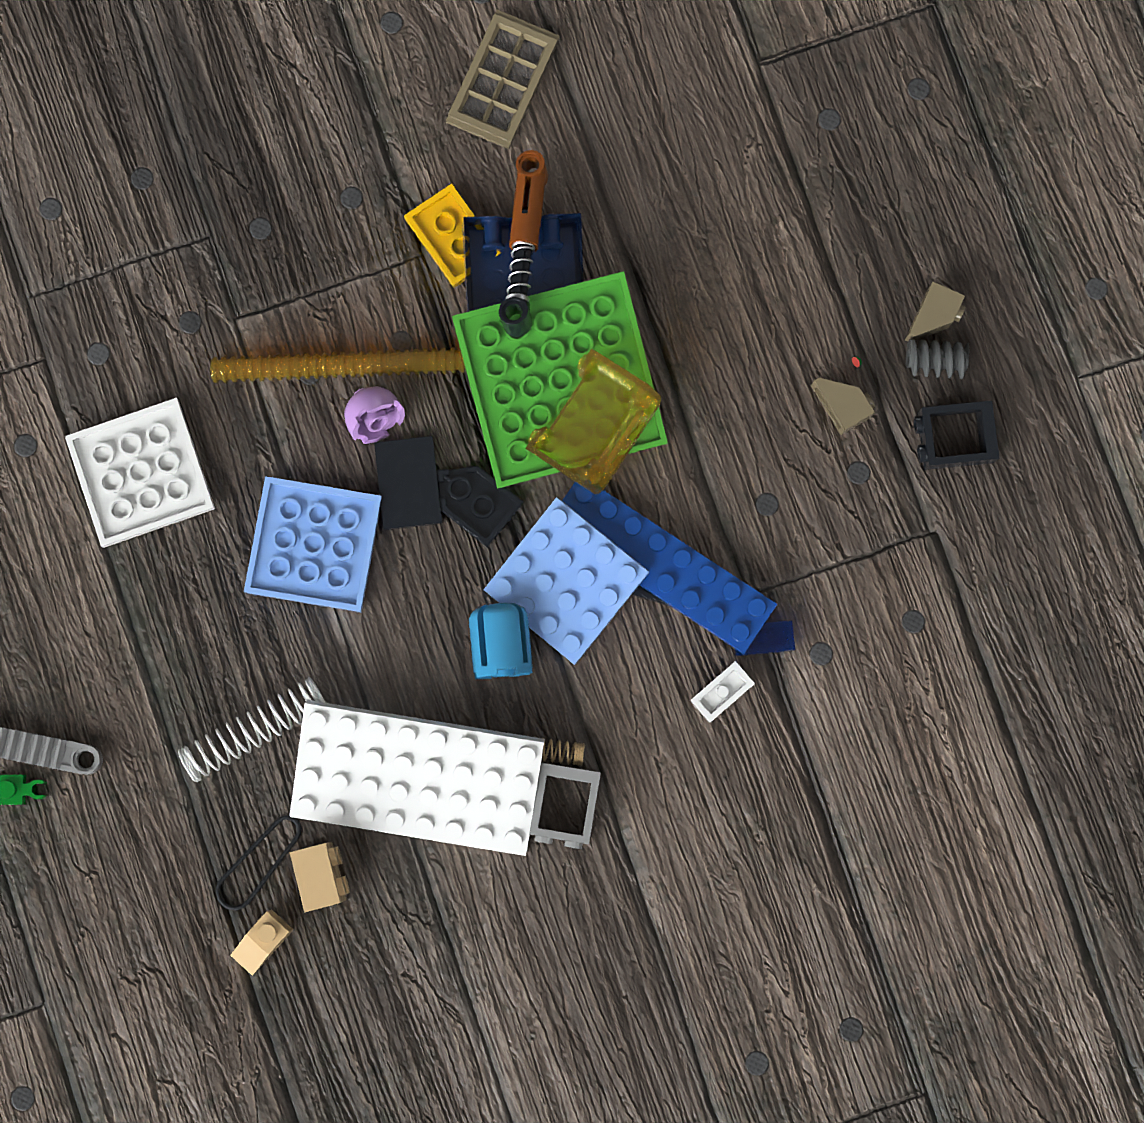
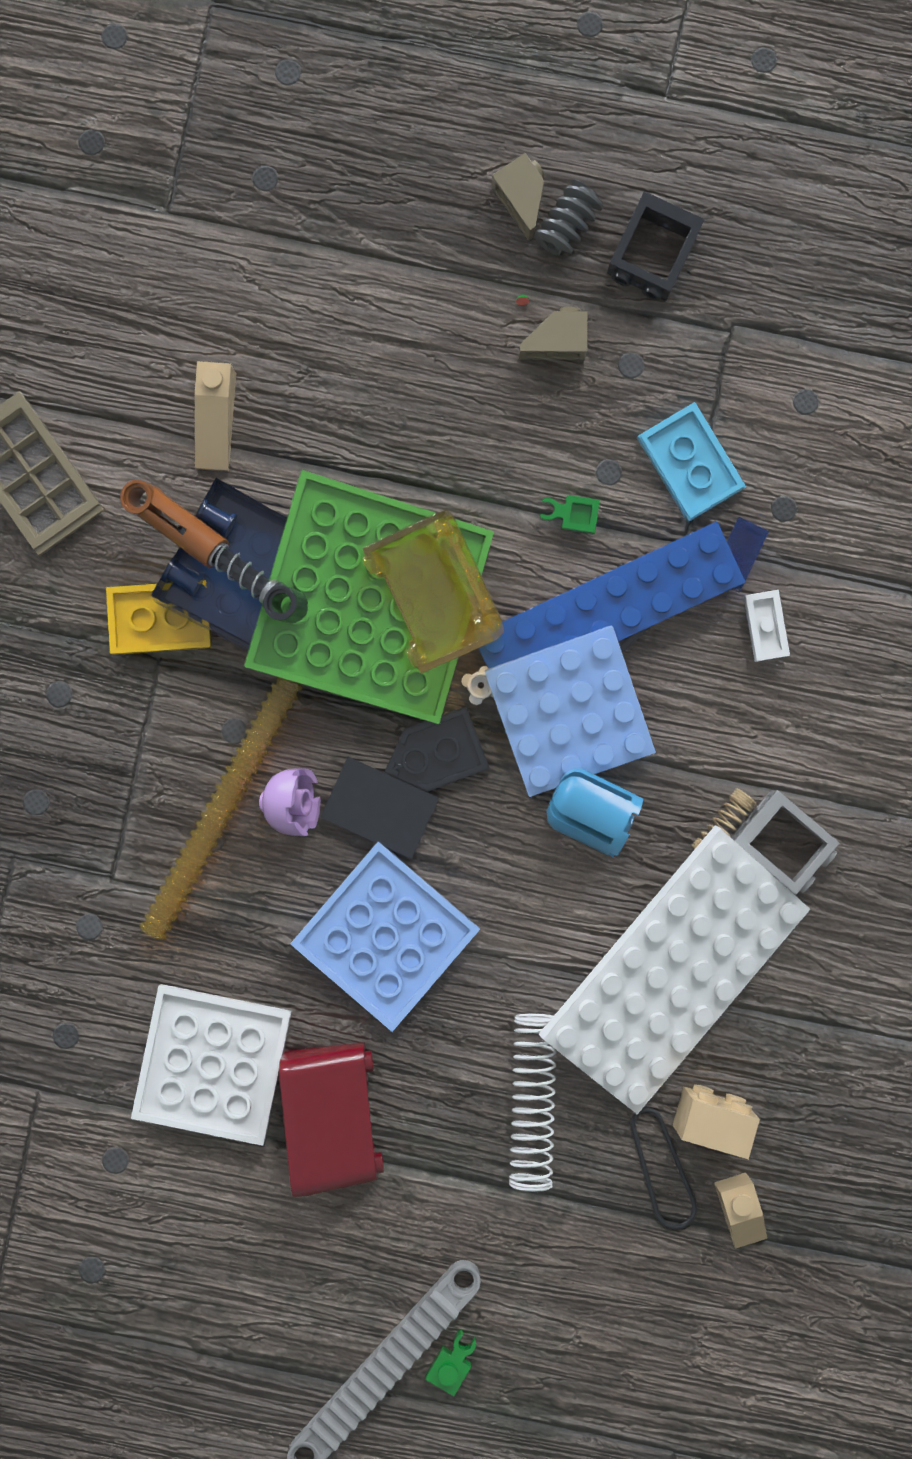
camera: 55 degrees left, 5 degrees up
(149, 581) = (328, 1118): none -> dark red windscreen
(544, 494) = (471, 682): none -> white plate
(628, 186) = (214, 415): none -> tan slope
(719, 497) = (577, 513): none -> green plate
(812, 561) = (691, 462): none -> medium azure tile

